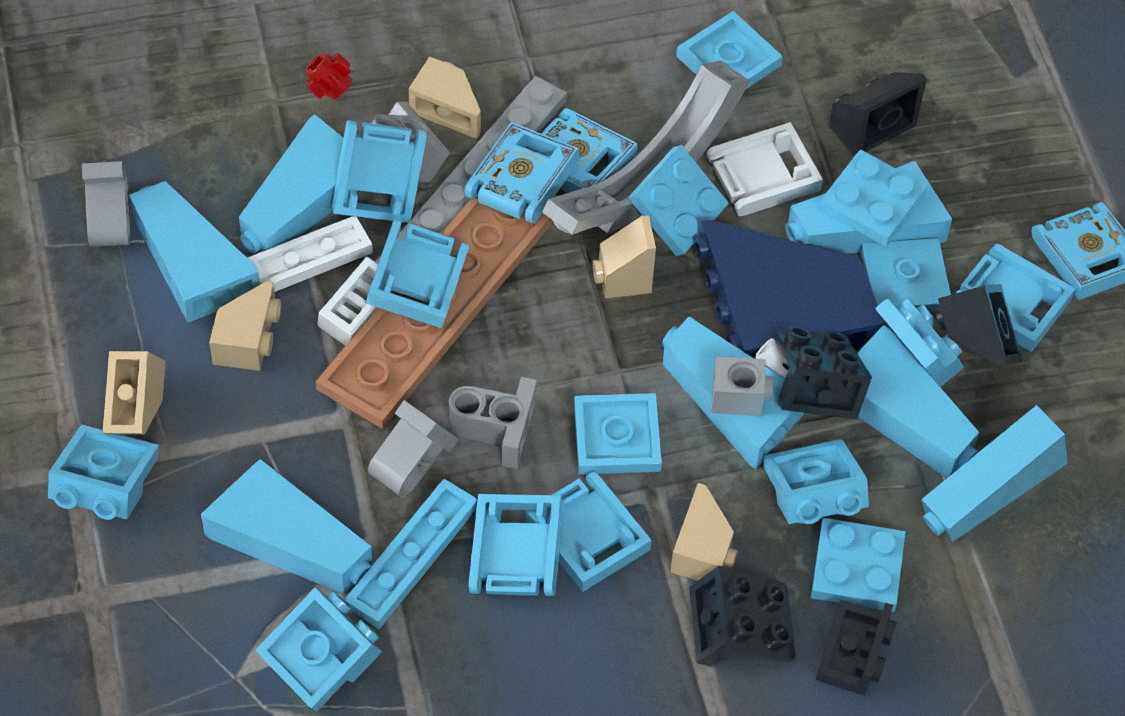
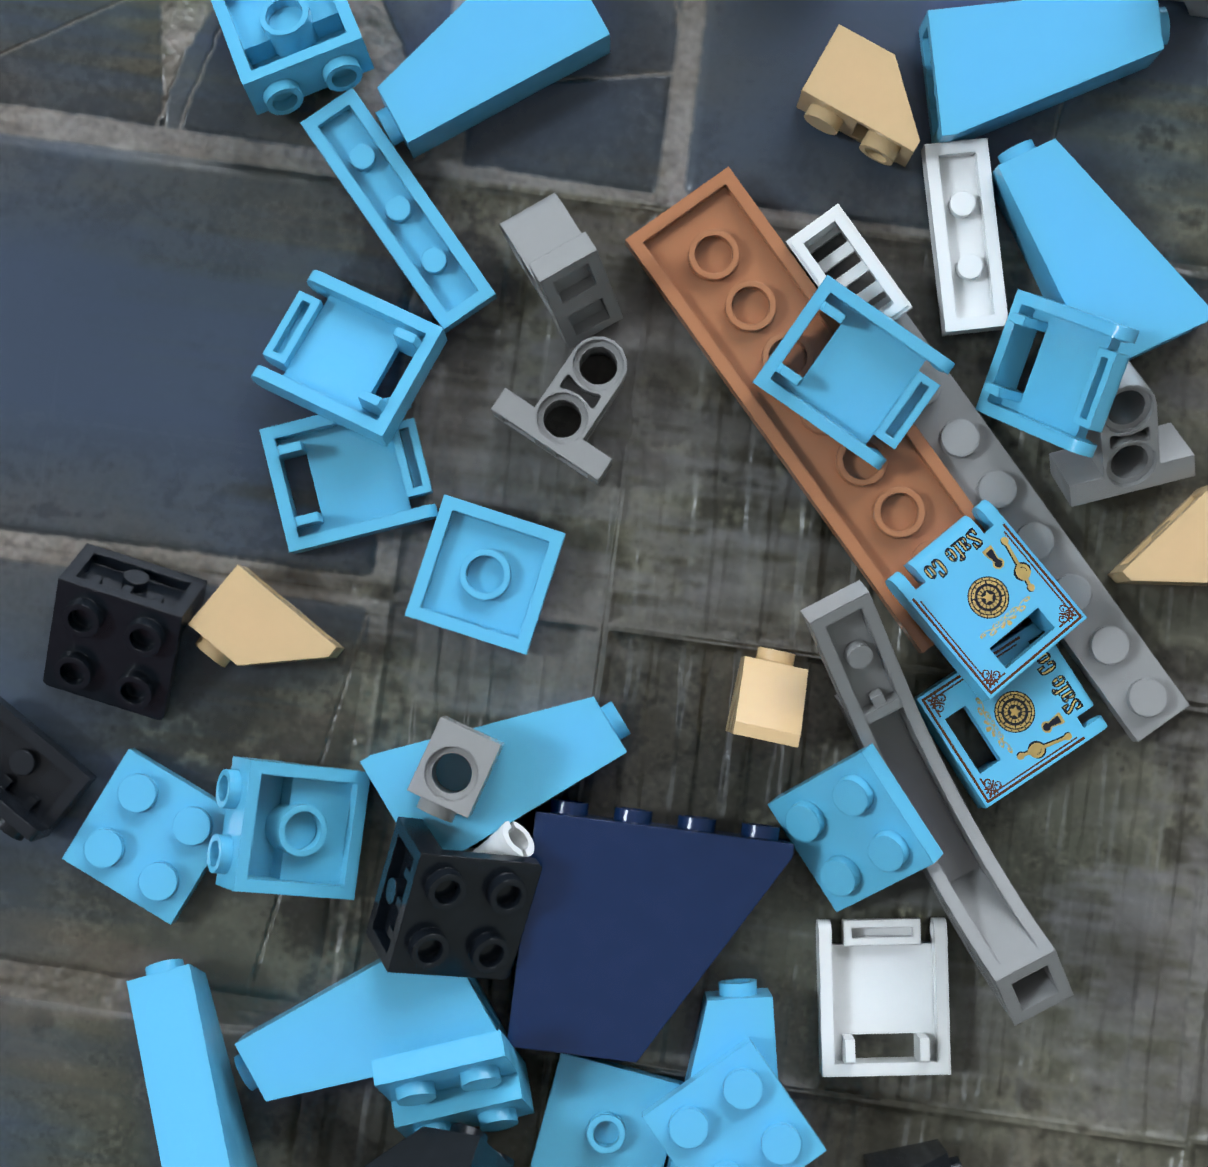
camera: 115 degrees right, 30 degrees up
(733, 44) = (1123, 1035): medium azure plate -> none

